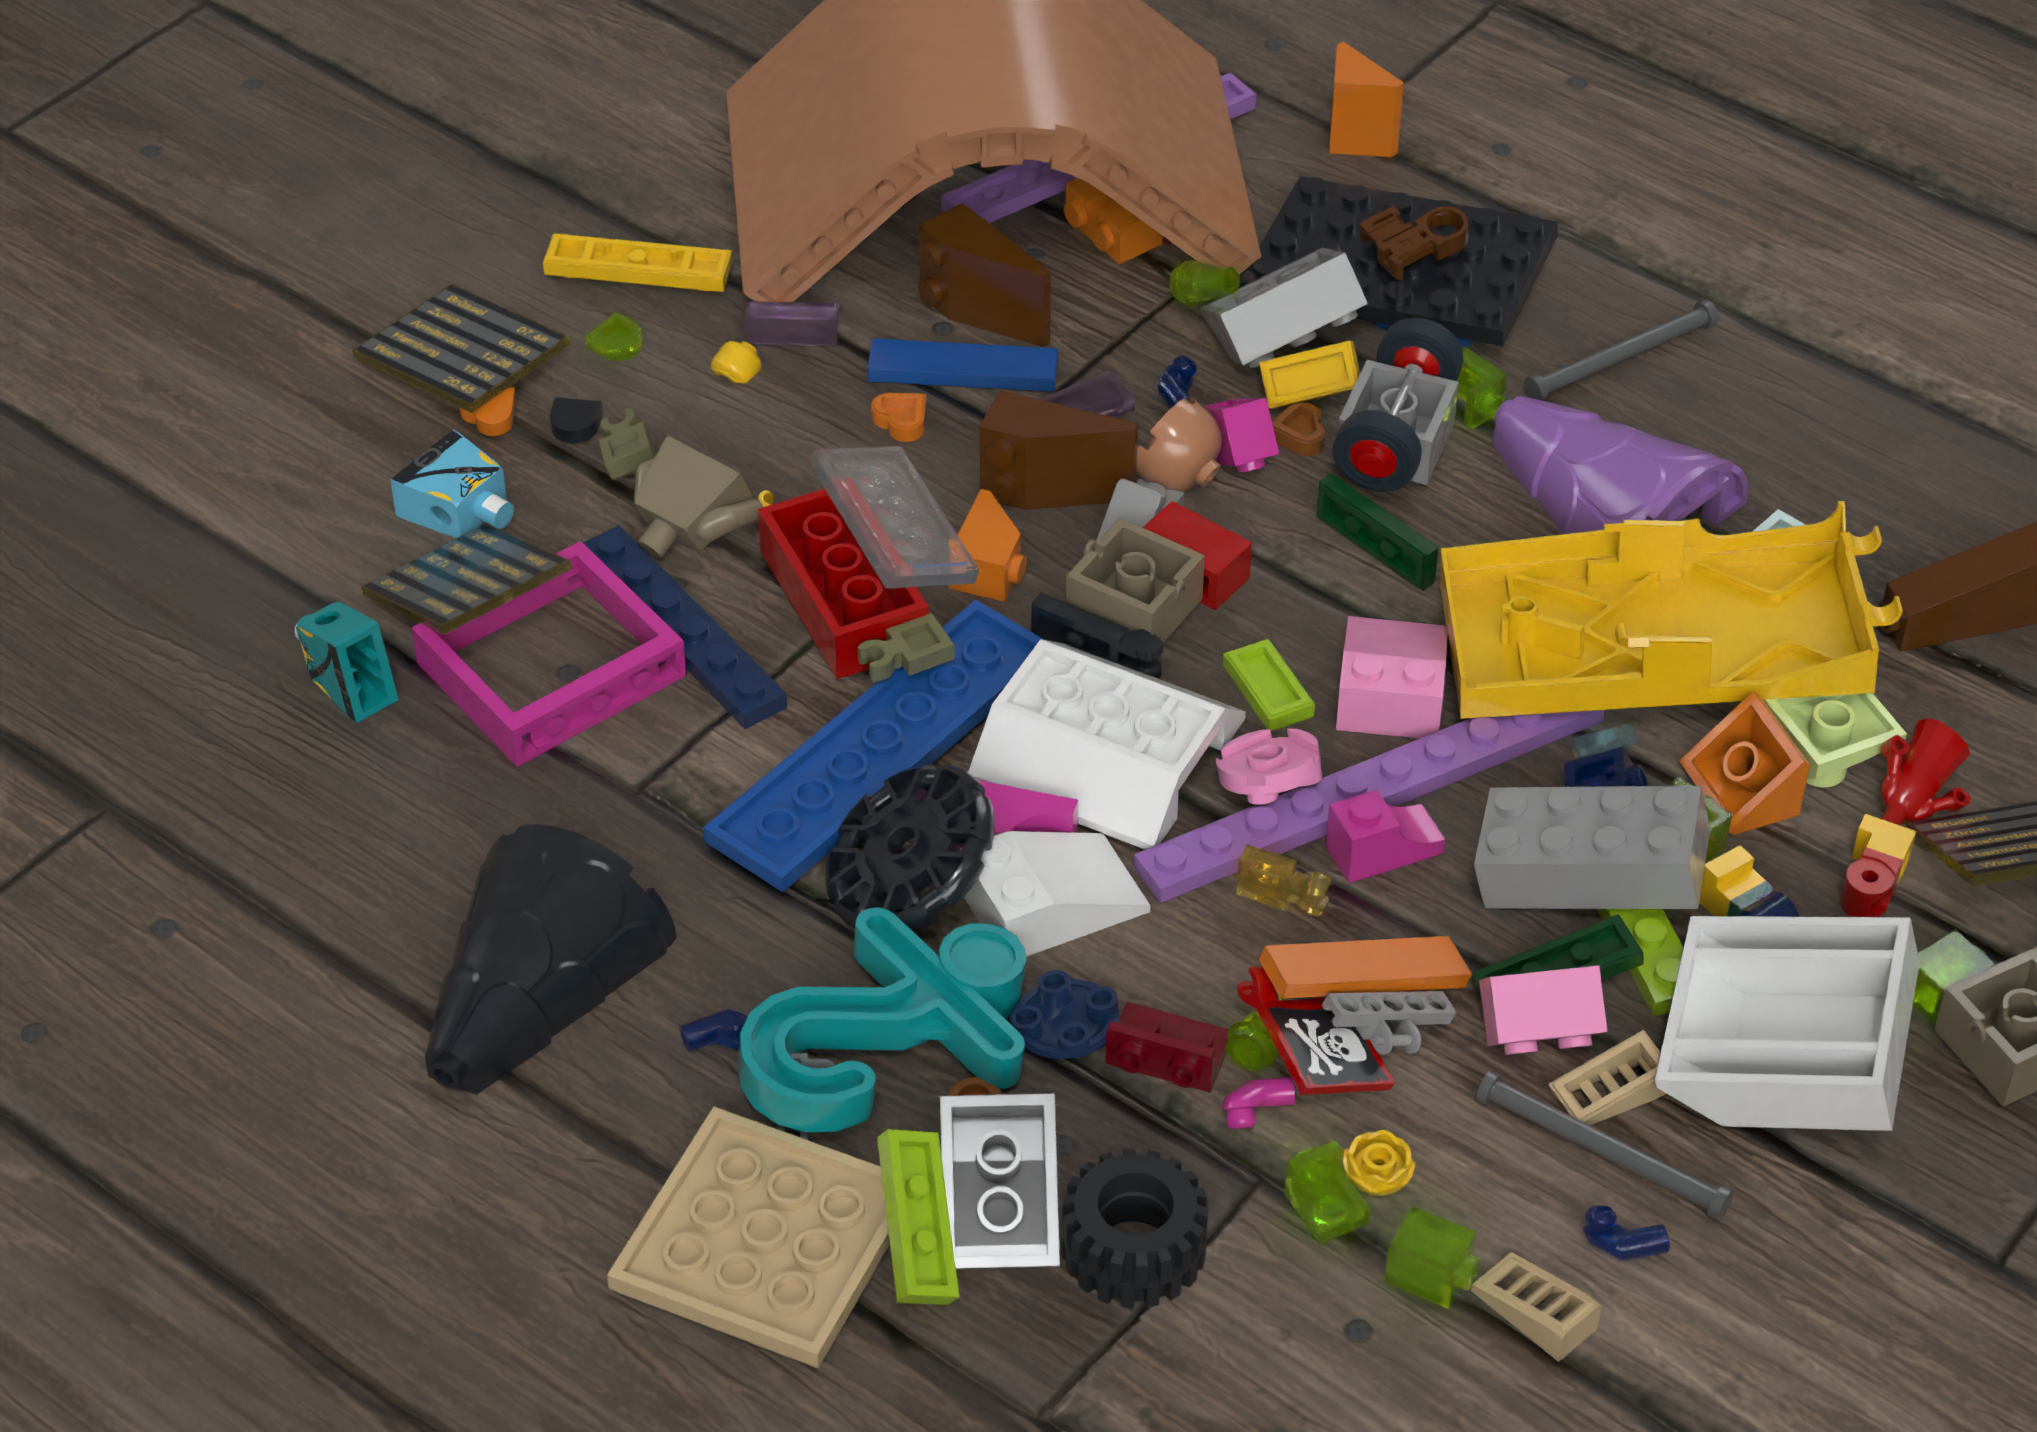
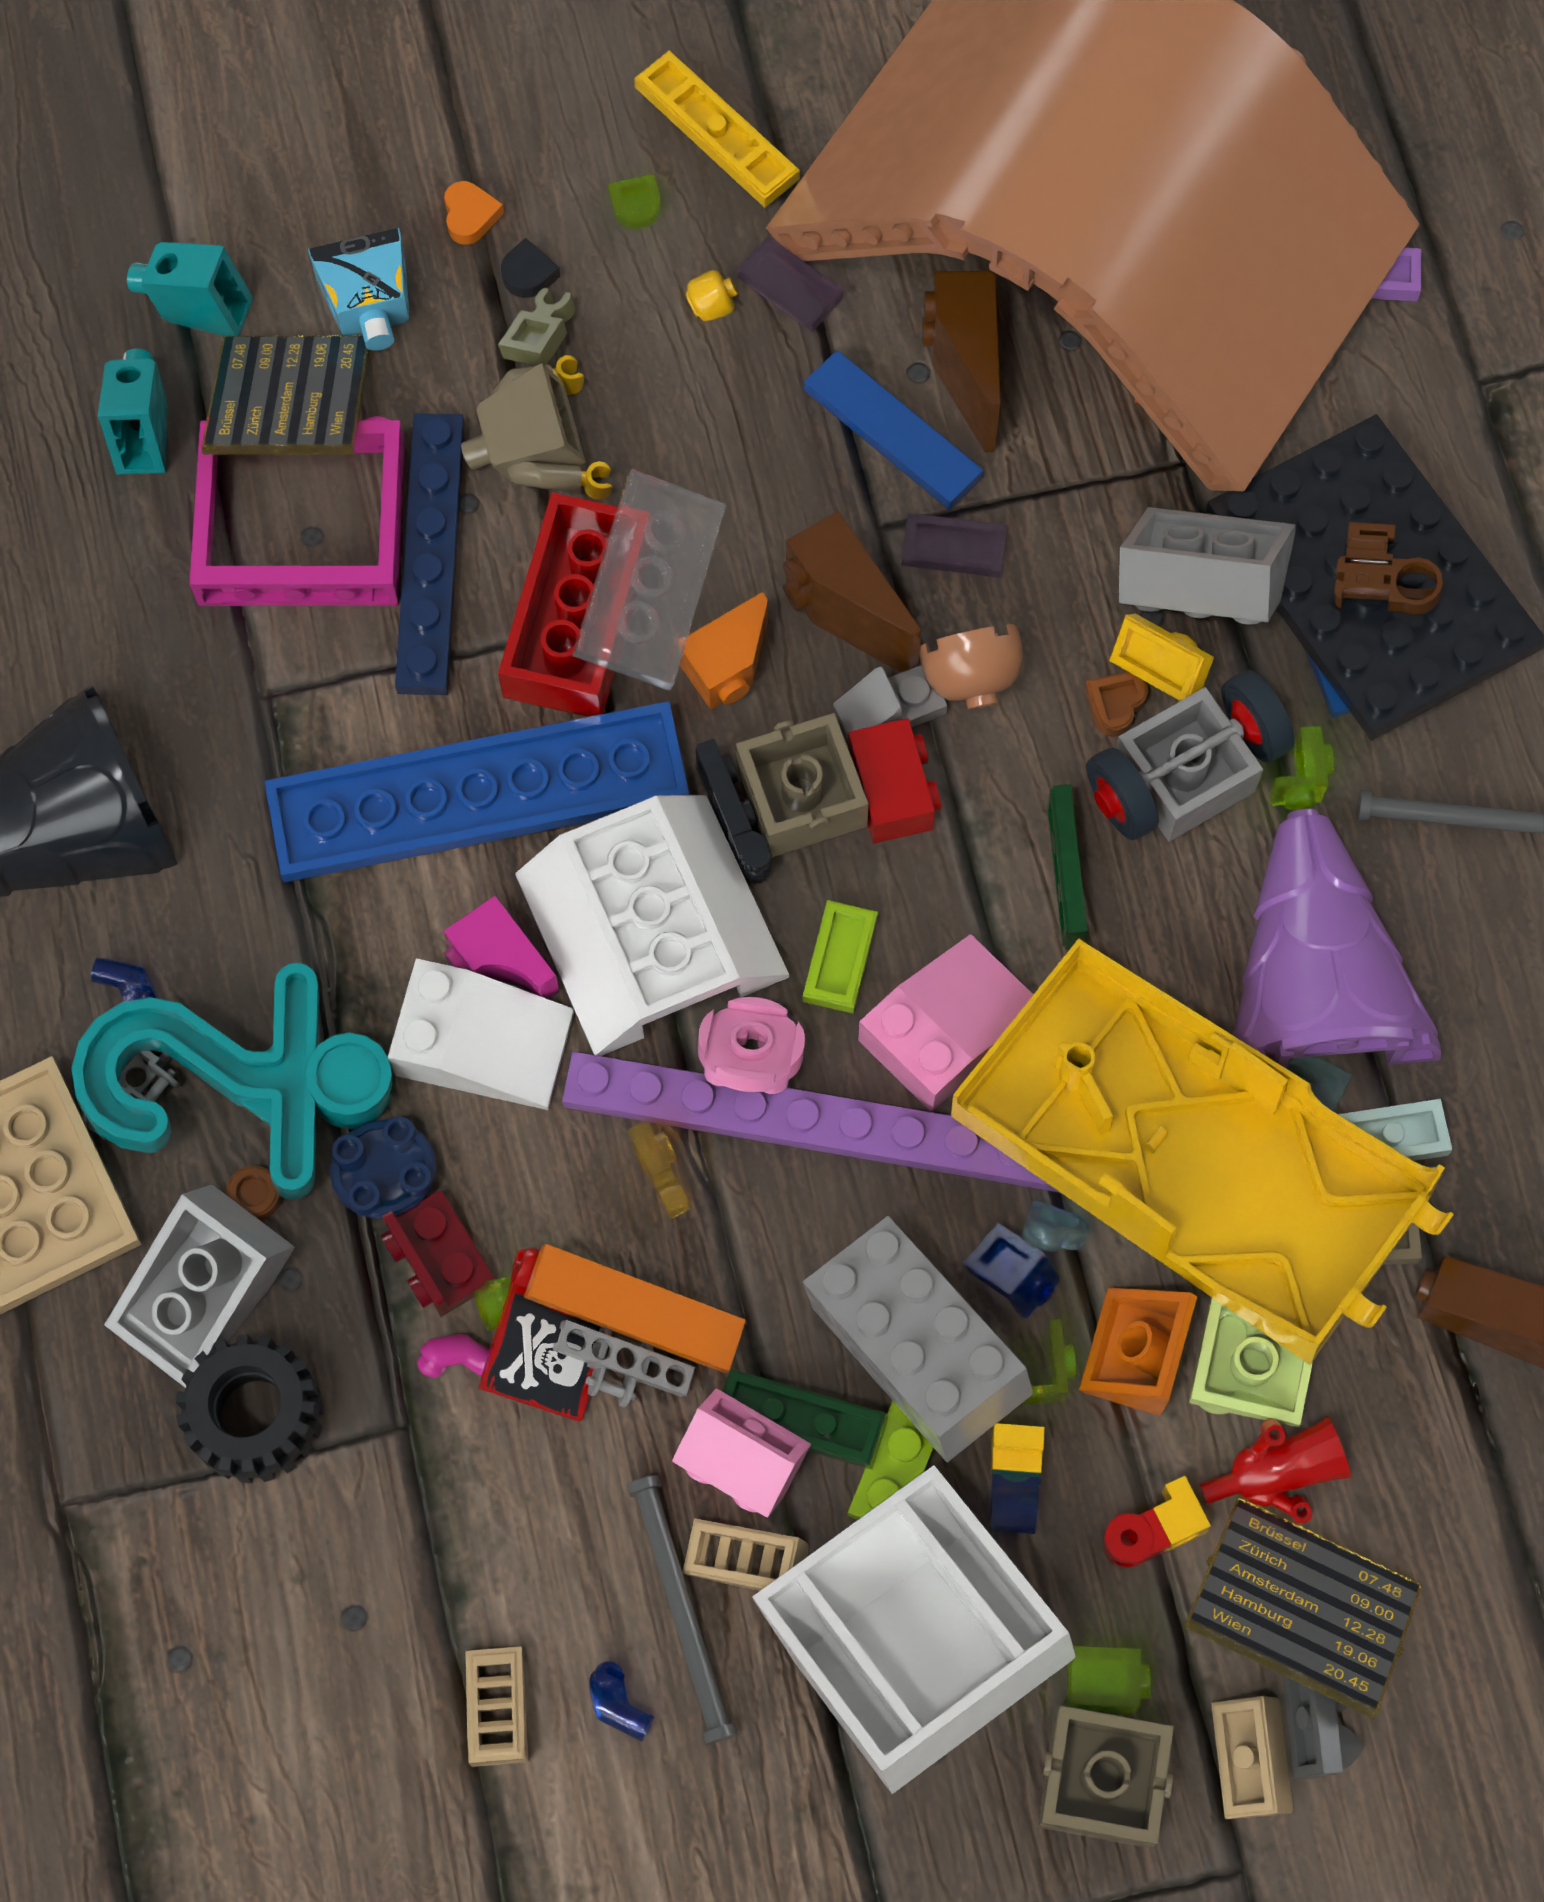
camera: 40 degrees right, 25 degrees up
(310, 555) = (194, 287): none -> teal torso
(461, 348) = (498, 129): piece -> none
(889, 818) = (407, 896): black plate -> none
(901, 414) = (795, 449): orange tile -> none
(909, 645) = (564, 723): olive plate -> none
(918, 1217) = (101, 1276): lime plate -> none
(1177, 380) = (1050, 579): clear blue arm -> none
(1200, 282) = (1167, 482): clear neon green cone -> none
(1245, 432) = (1046, 671): dark pink arch -> none
(1324, 1193) = (422, 1488): clear neon green bracket -> none
(1364, 106) = (1489, 375): orange slope -> none
(1375, 837) = (783, 1183): dark pink arch -> none
(1378, 1148) = (489, 1472): yellow plate -> none
(1431, 1257) = (448, 1609): clear neon green brick -> none

